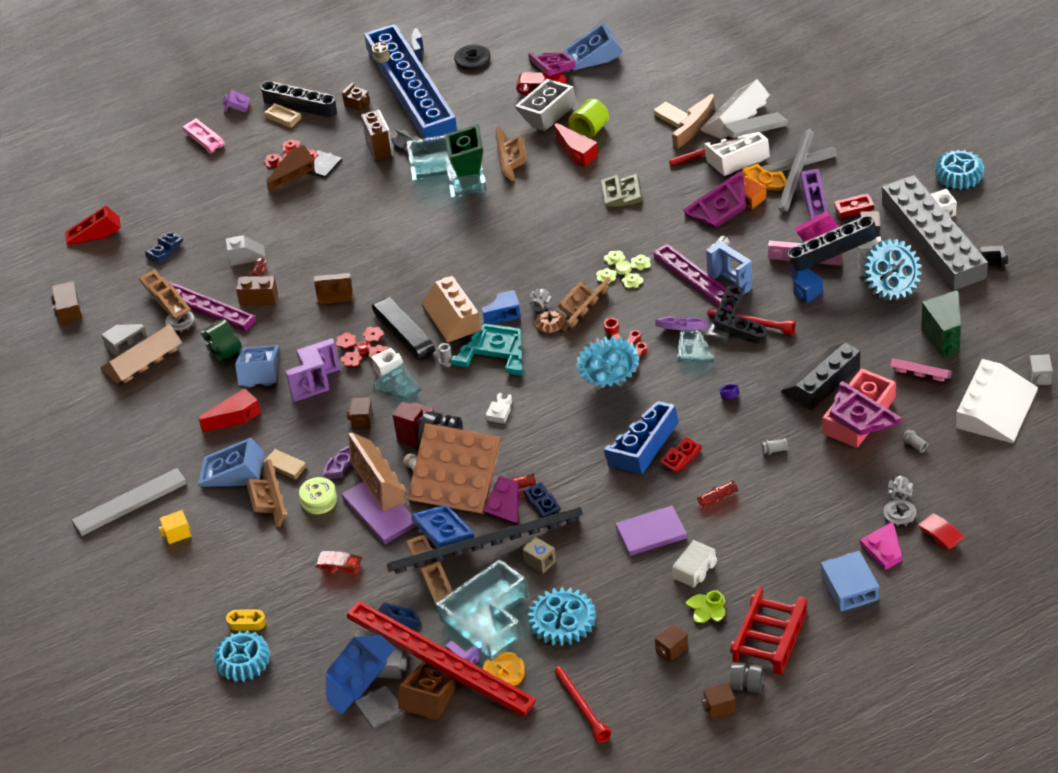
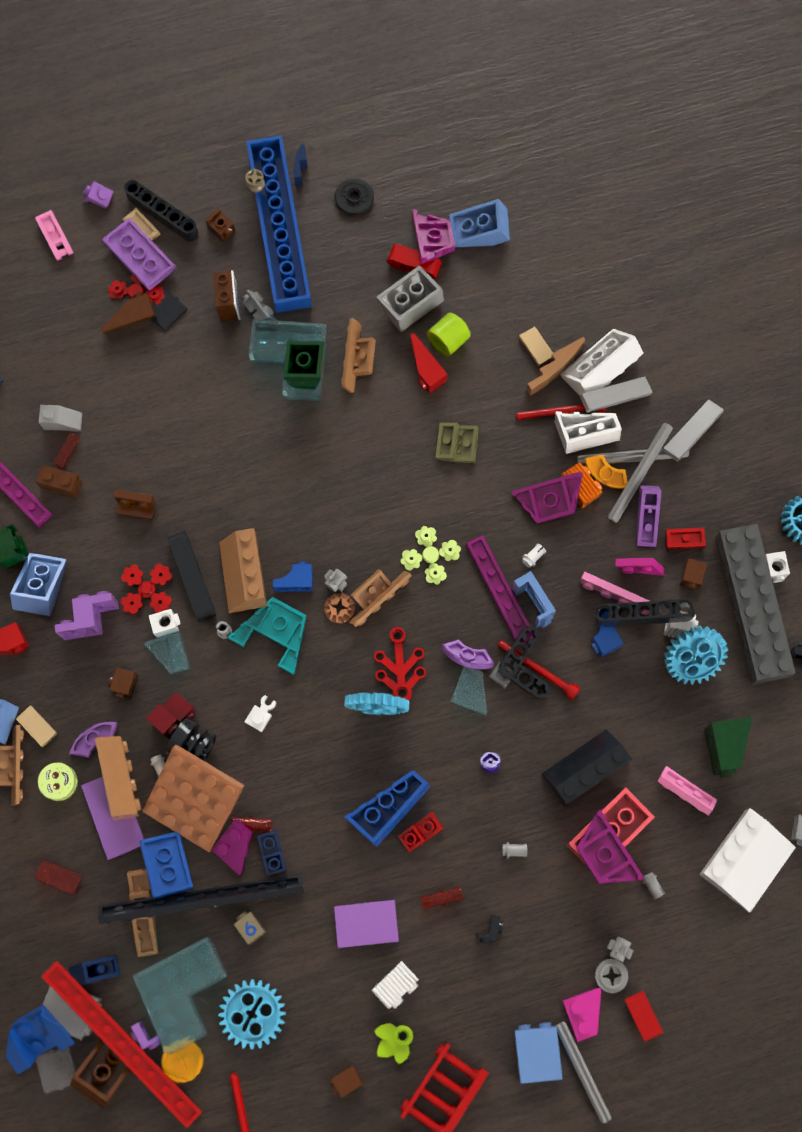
camera: 10 degrees right, 30 degrees up
(286, 129) = (139, 254): none -> medium lavender tile
(771, 509) = (495, 927): none -> black bracket
(833, 134) = (693, 430): none -> light grey tile
(900, 588) = (583, 1072): none -> light grey axle

